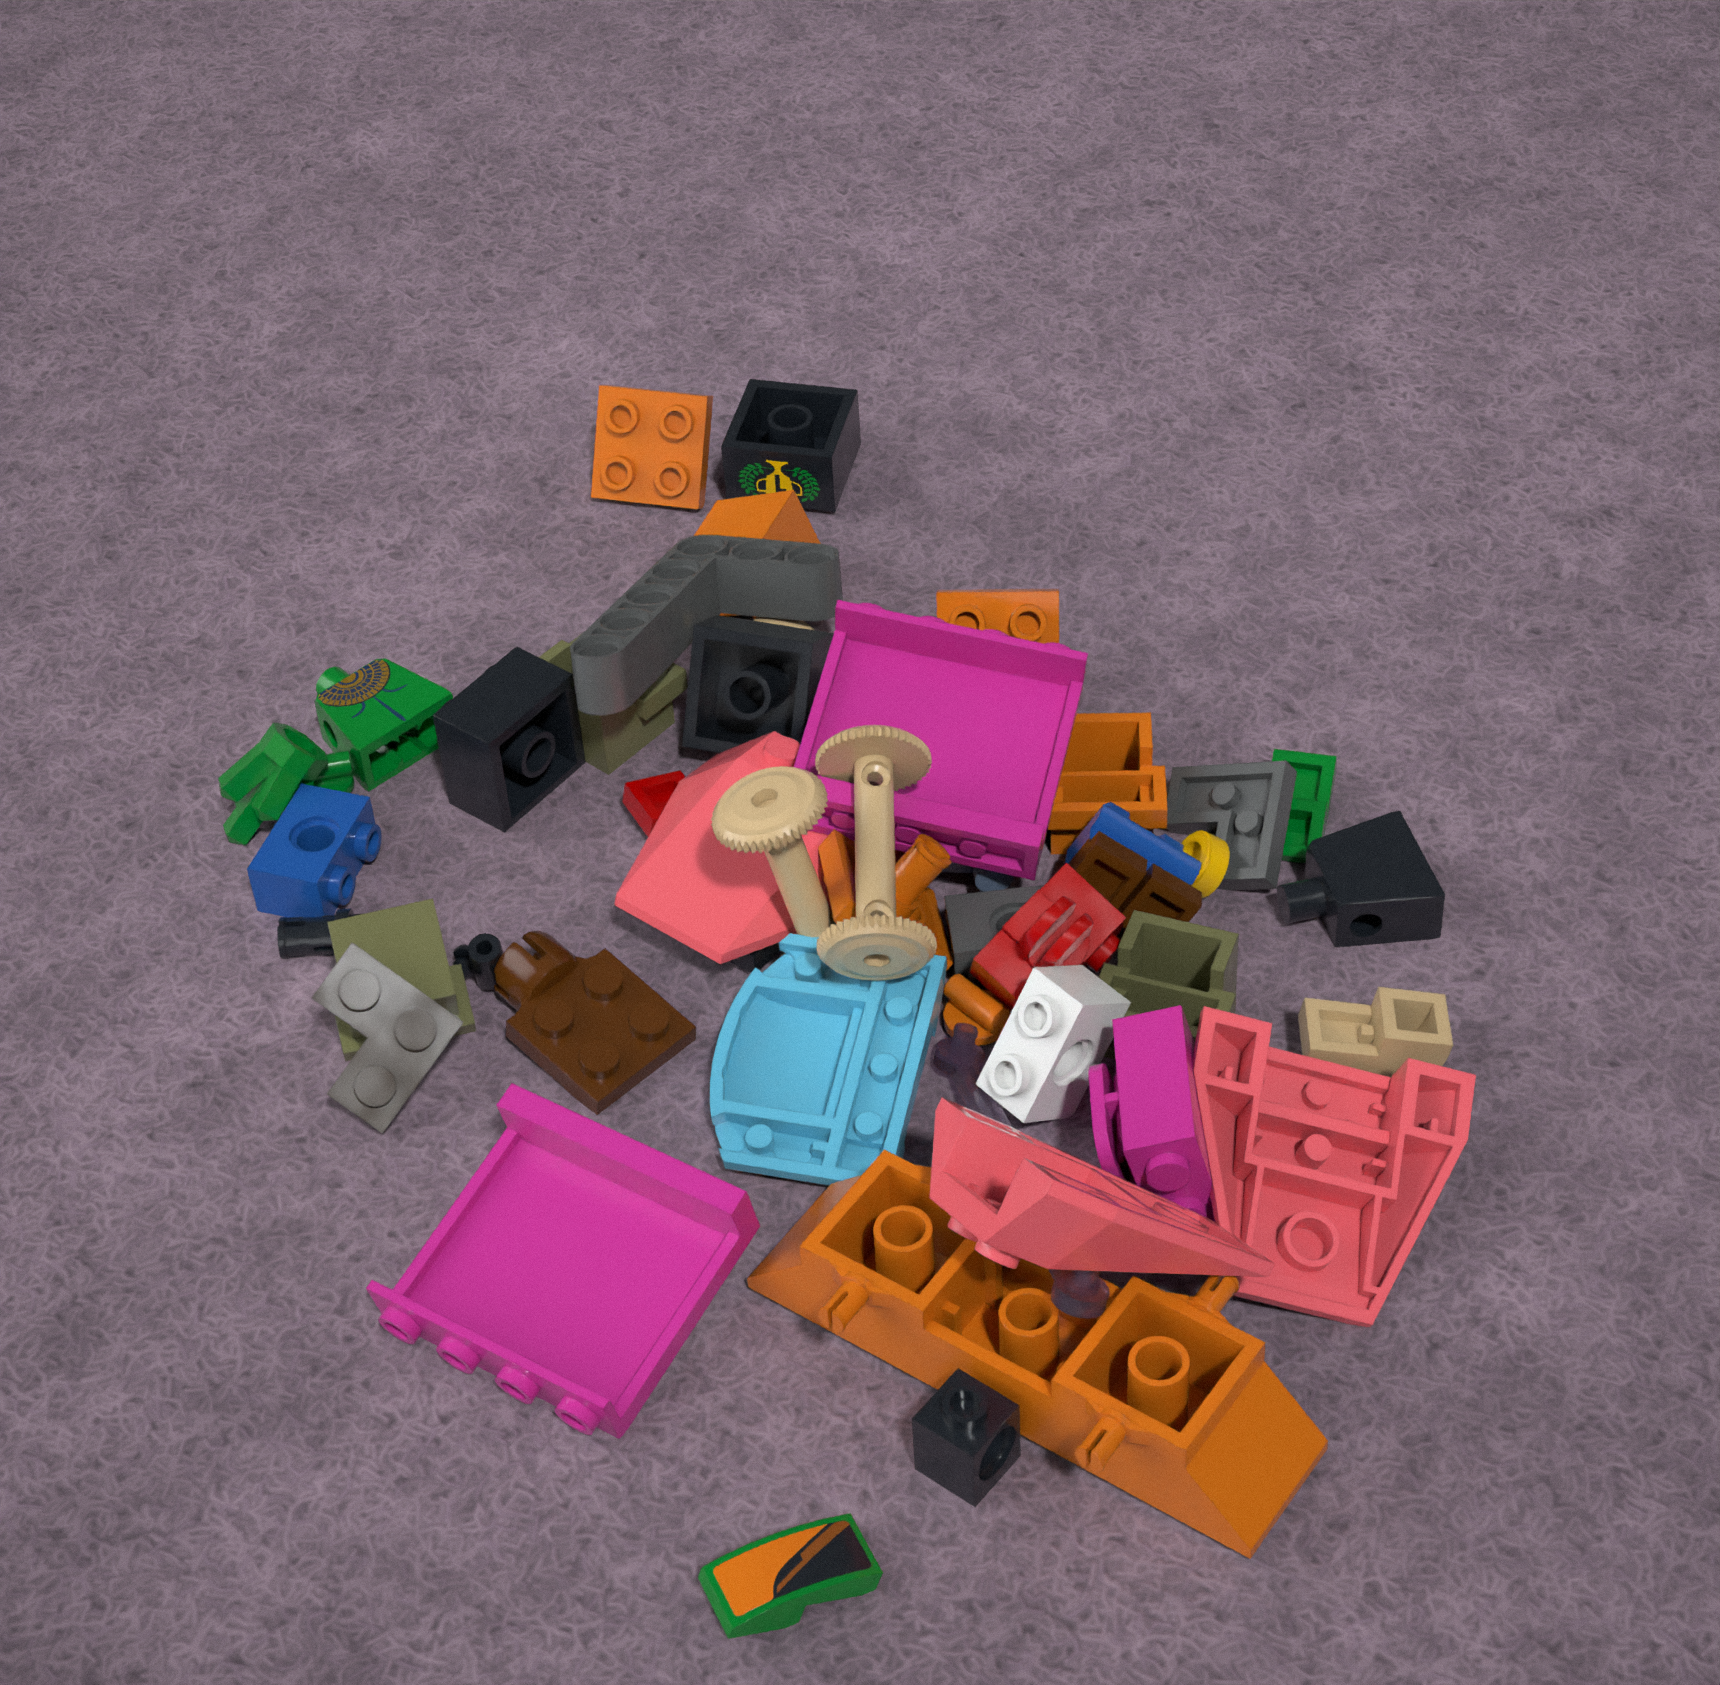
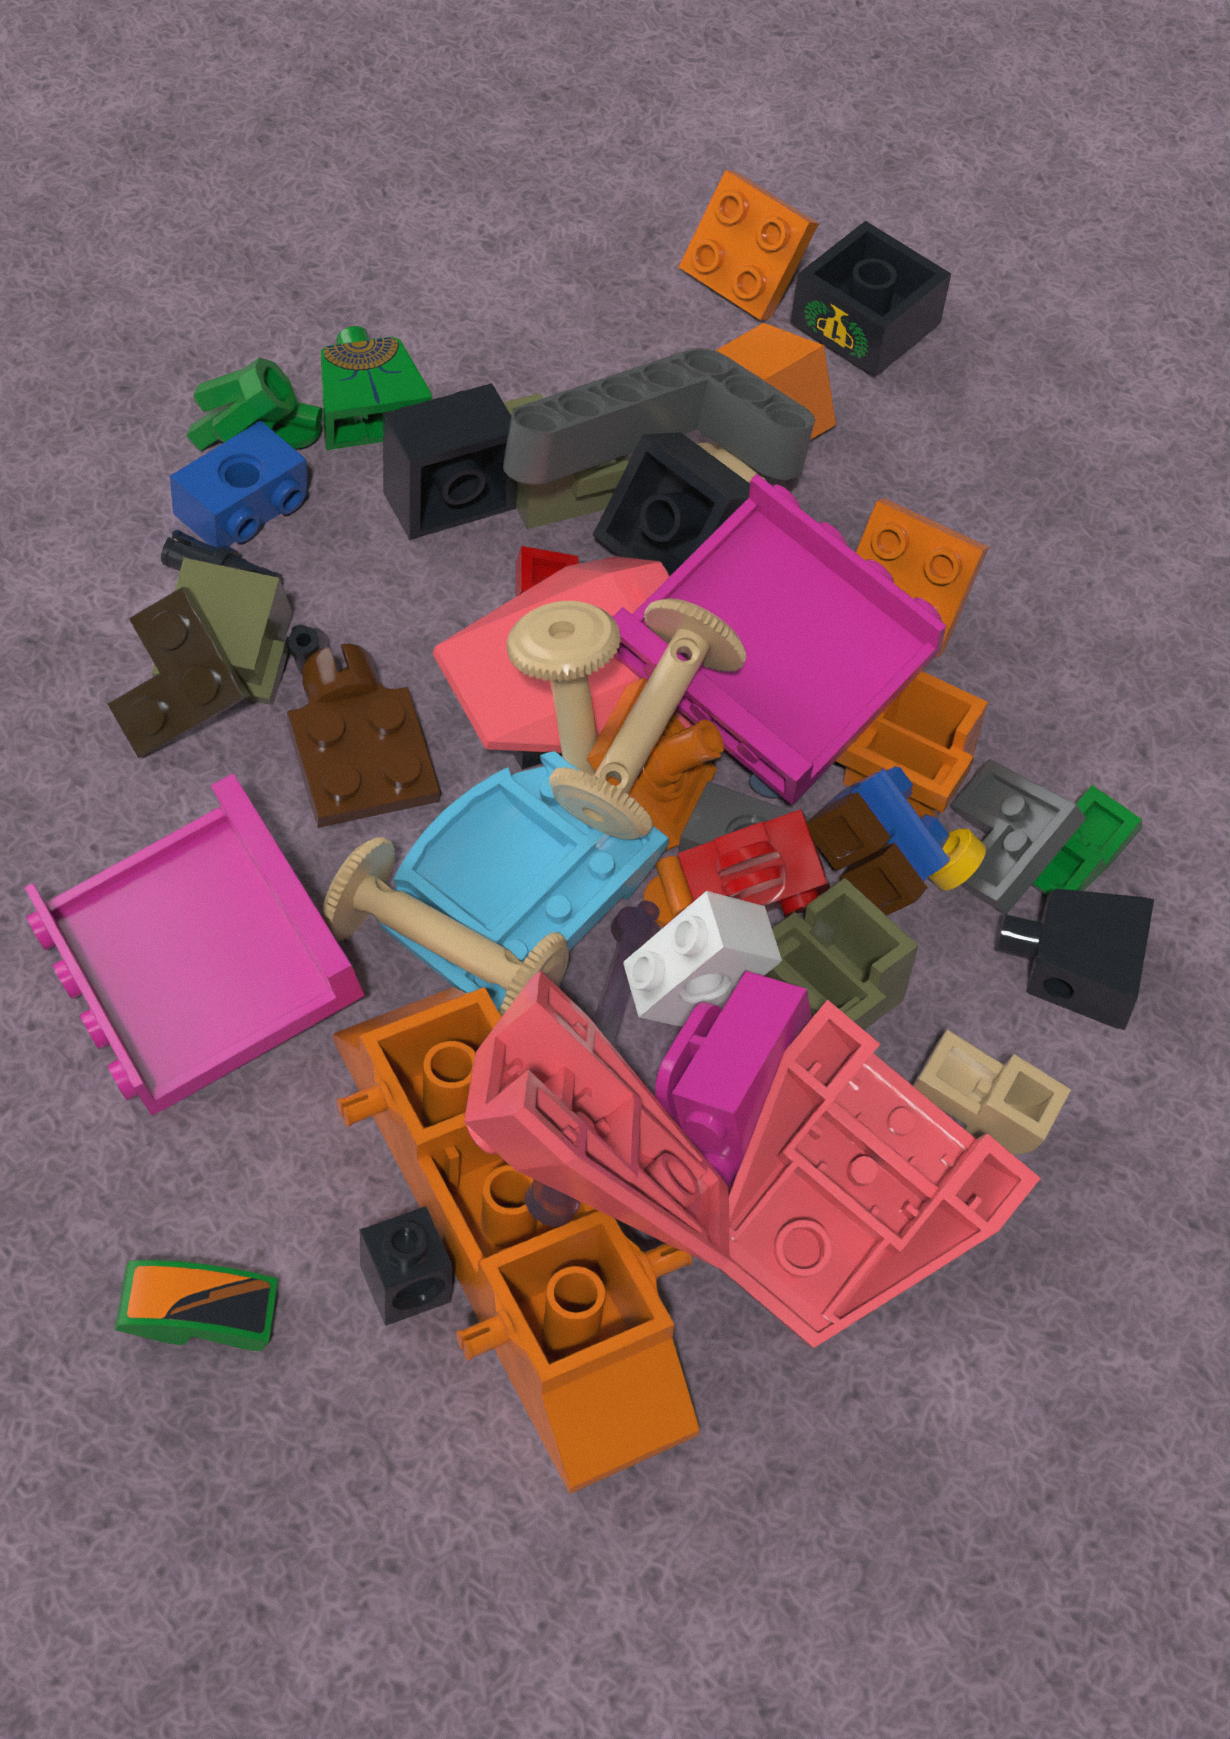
camera: 20 degrees right, 10 degrees up
(796, 1138) = (363, 889): none -> tan hose

